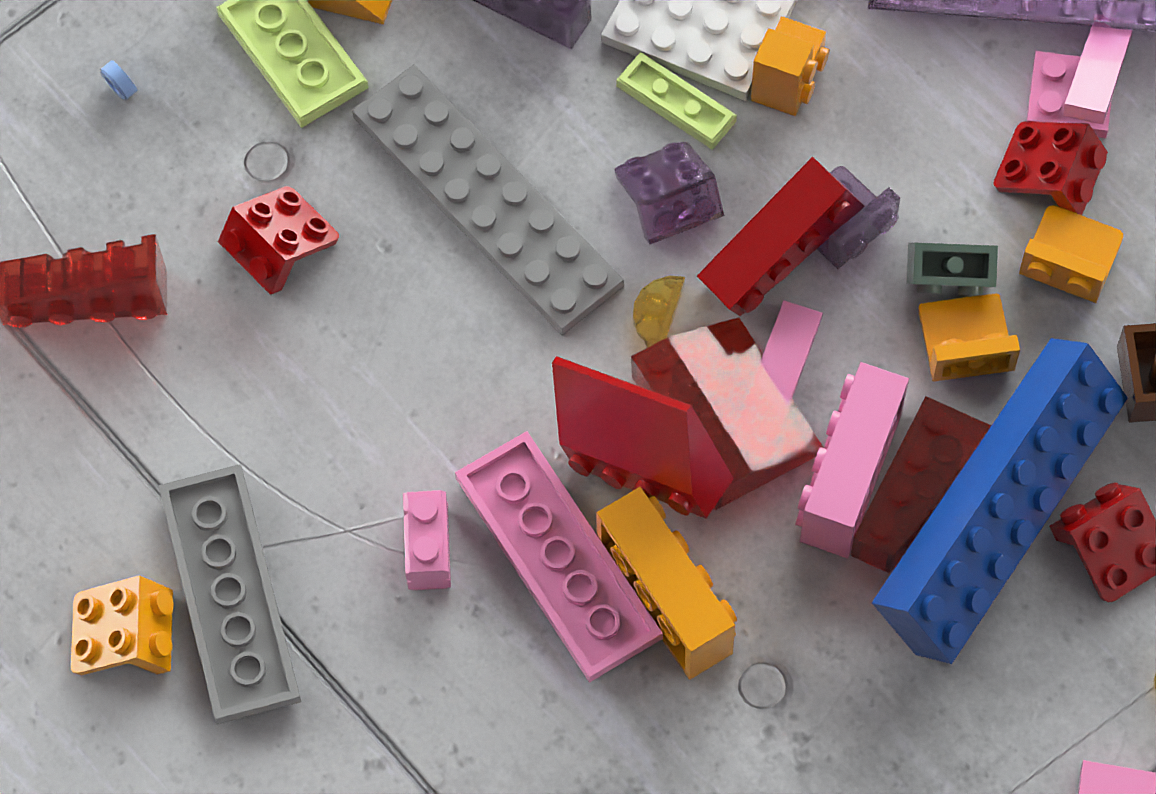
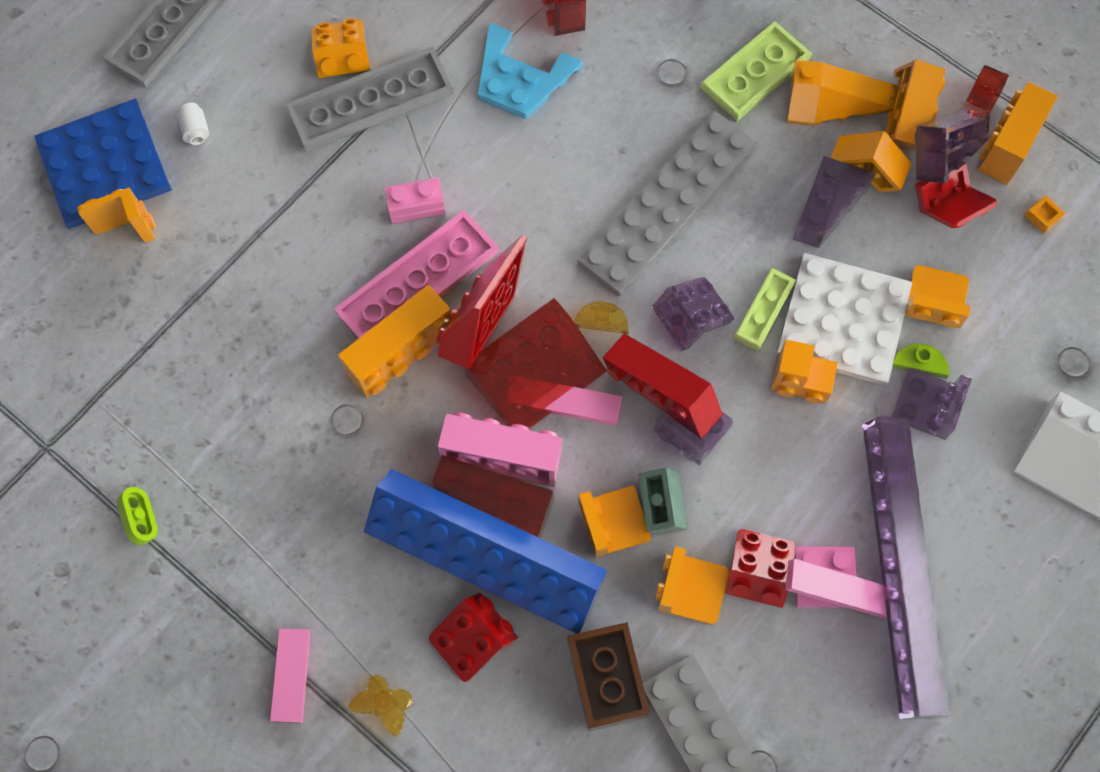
camera: 80 degrees right, 5 degrees up
(242, 382) = (517, 85): none -> medium azure wing
(274, 233) = (617, 83): red bracket -> none

